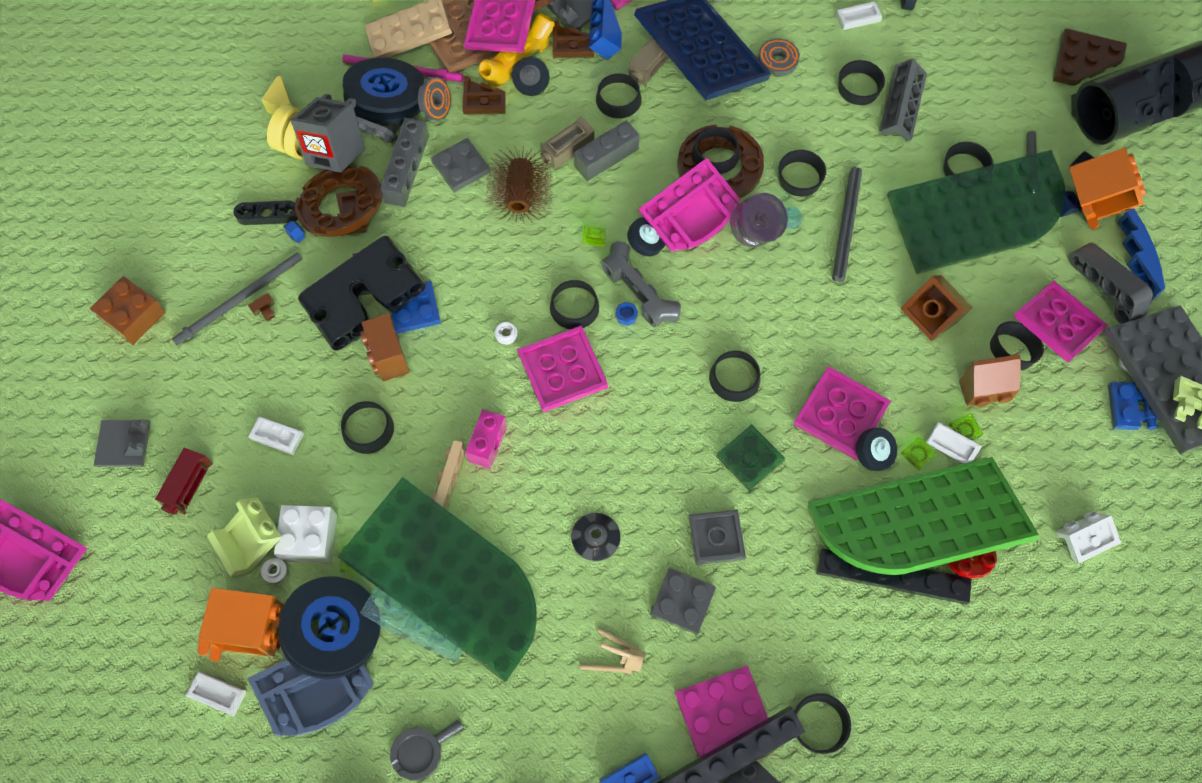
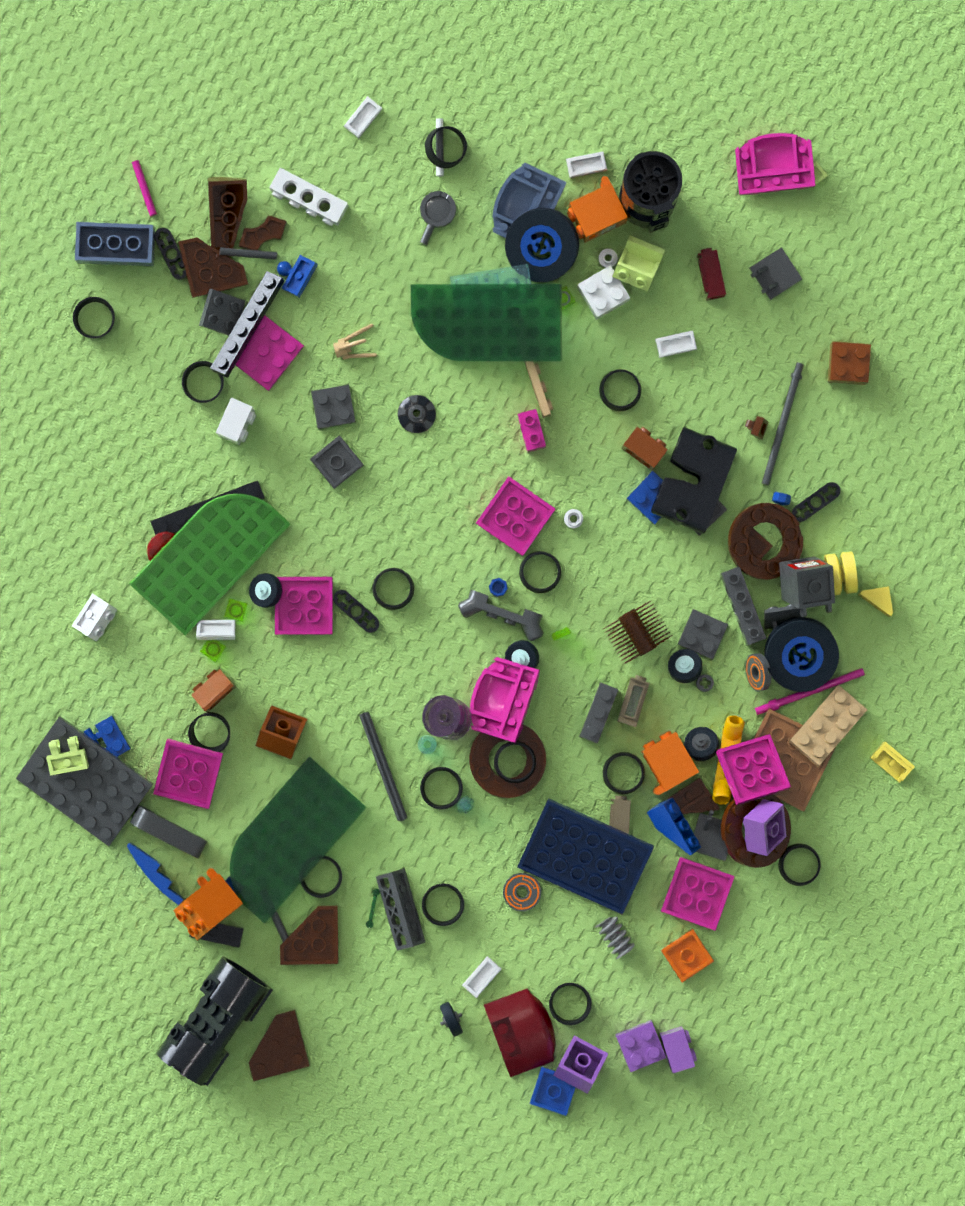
camera: 145 degrees right, 20 degrees up
(149, 588) = (650, 189): none -> black cylinder
(482, 98) = (726, 702): reddish brown wing -> none
(487, 119) = (708, 678): none -> dark grey bush
(493, 140) = (685, 666): none -> black wheel
(571, 71) = (669, 761): none -> orange container
(750, 457) = (347, 532): clear green plate -> none
(786, 146) = (465, 804): none -> clear light blue plate
(789, 366) = (356, 603): none -> black beam
(810, 648) = (236, 421): none -> white brick
(939, 108) = (369, 924): none -> clear green hinge
(1005, 118) = (313, 940): none -> reddish brown plate

